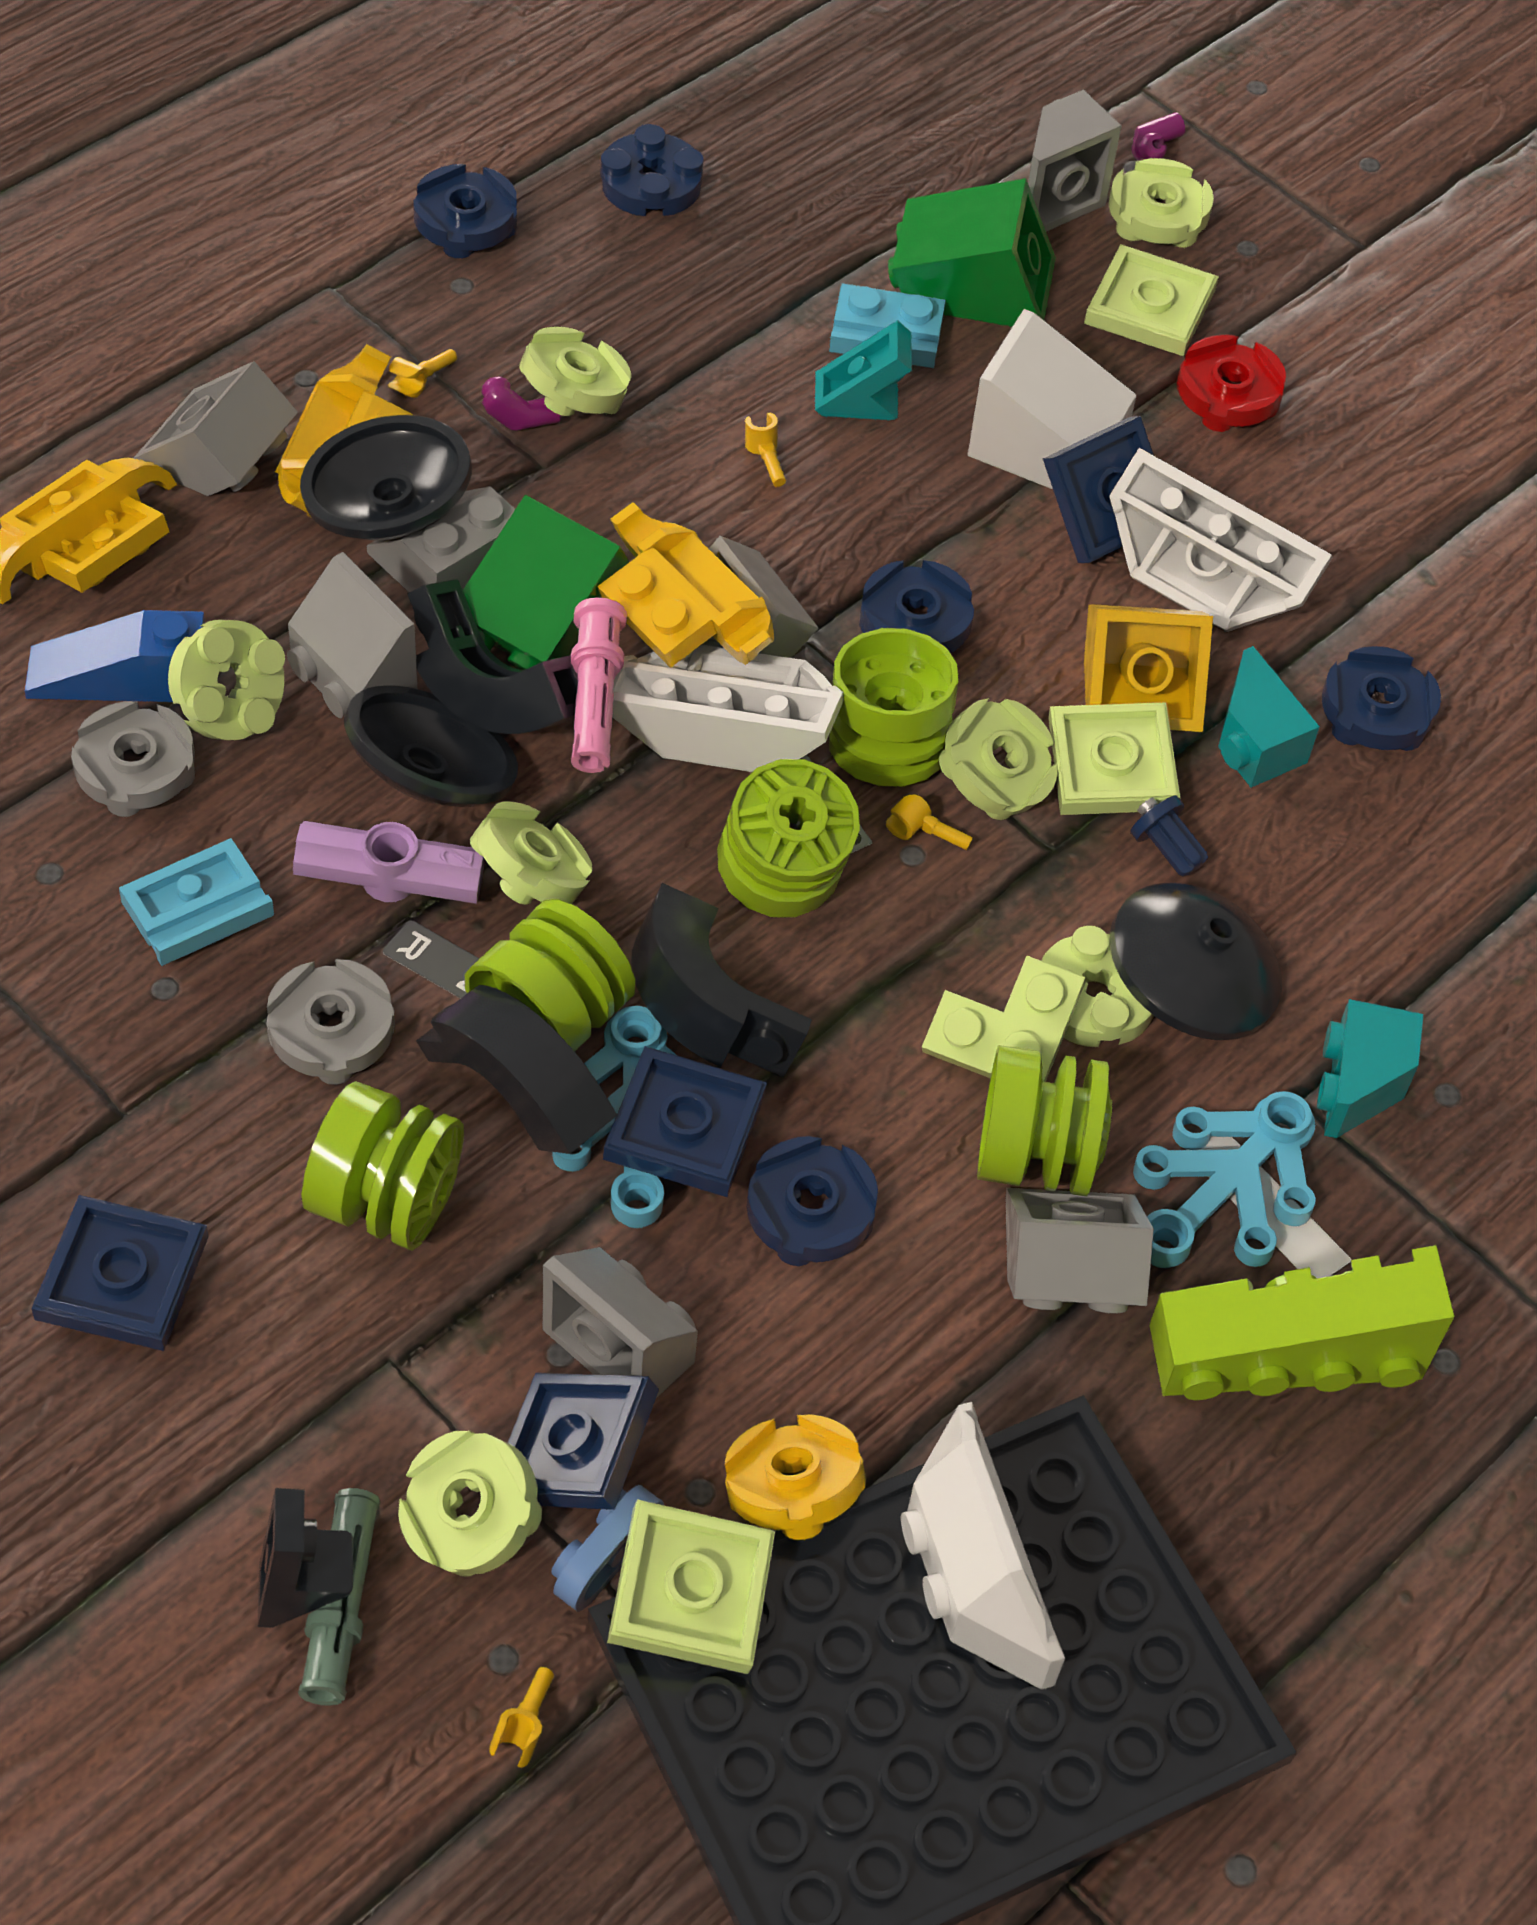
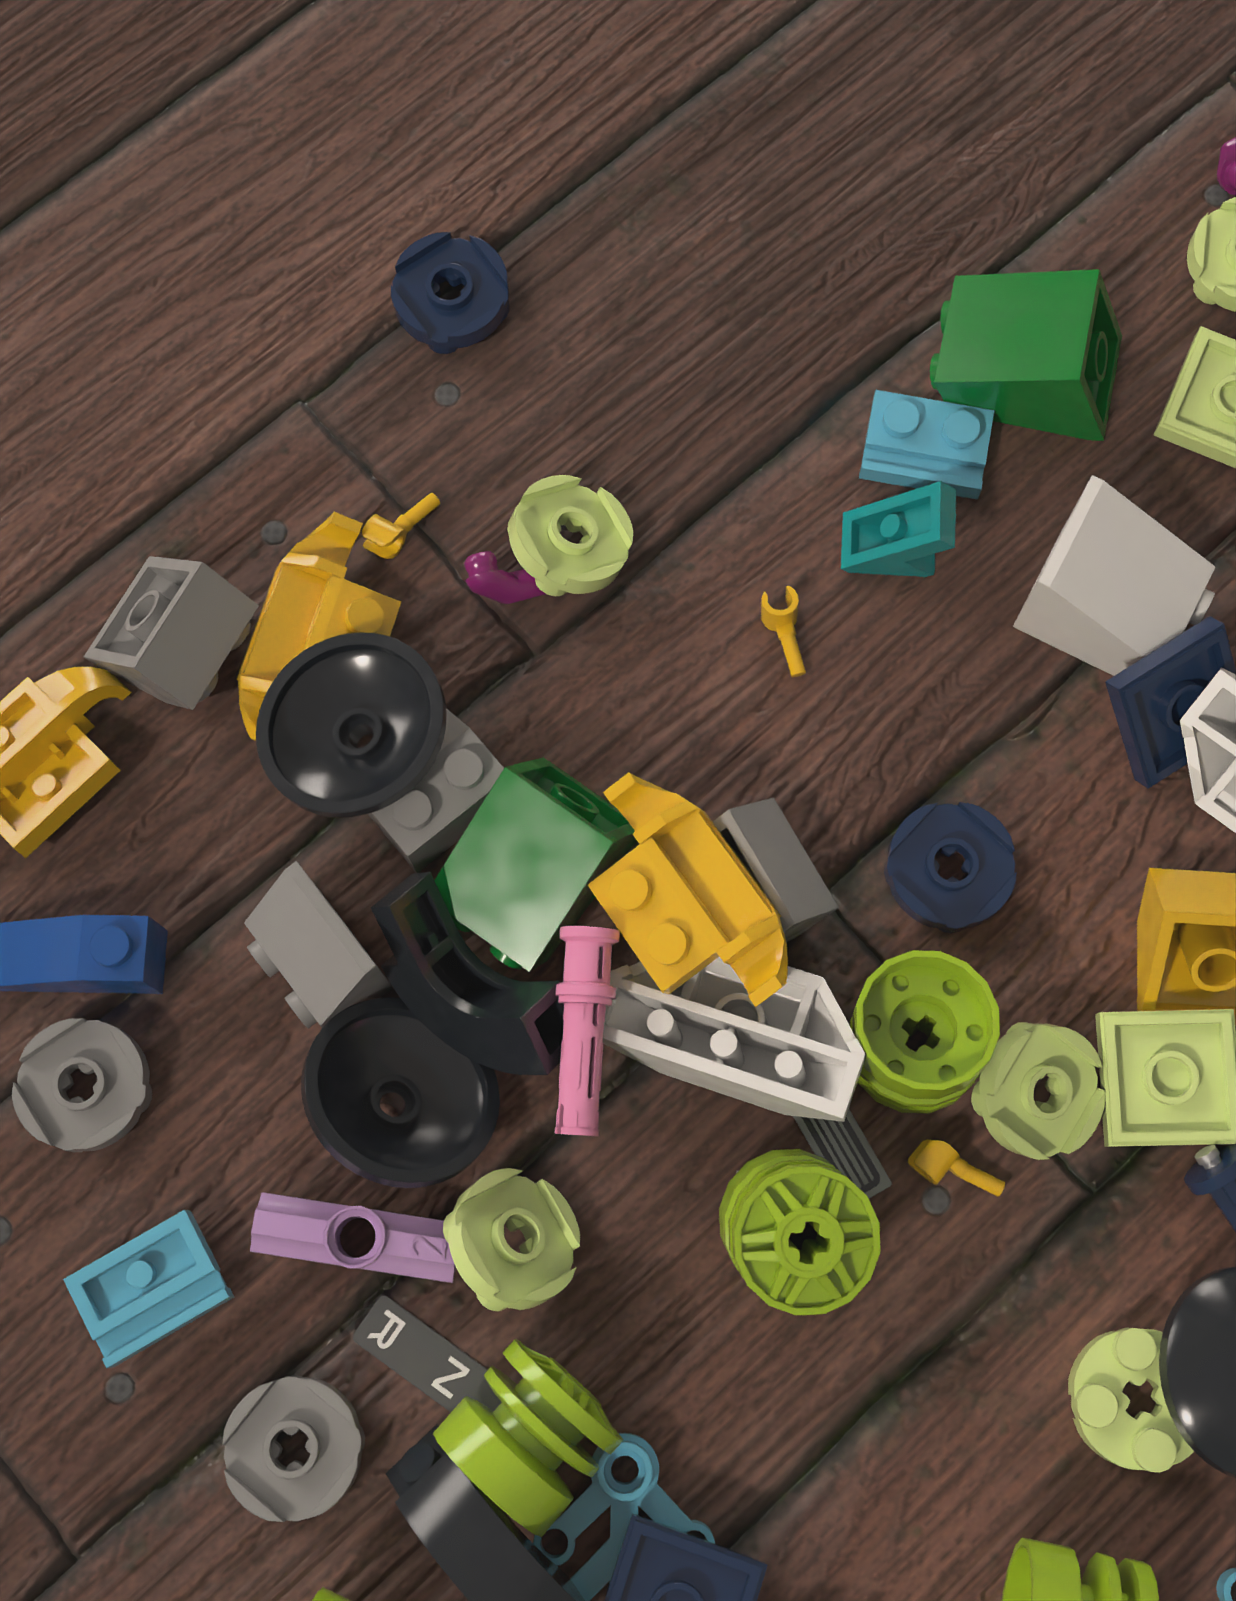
camera: 10 degrees right, 20 degrees up
(258, 673) = (198, 1026): yellowish green plate -> none
(675, 165) = (667, 197): dark blue plate -> none
(698, 999) = (678, 1433): black arch -> none
(1033, 1020) = (1046, 1485): yellowish green plate -> none
(1072, 159) = (1148, 211): light grey slope -> none

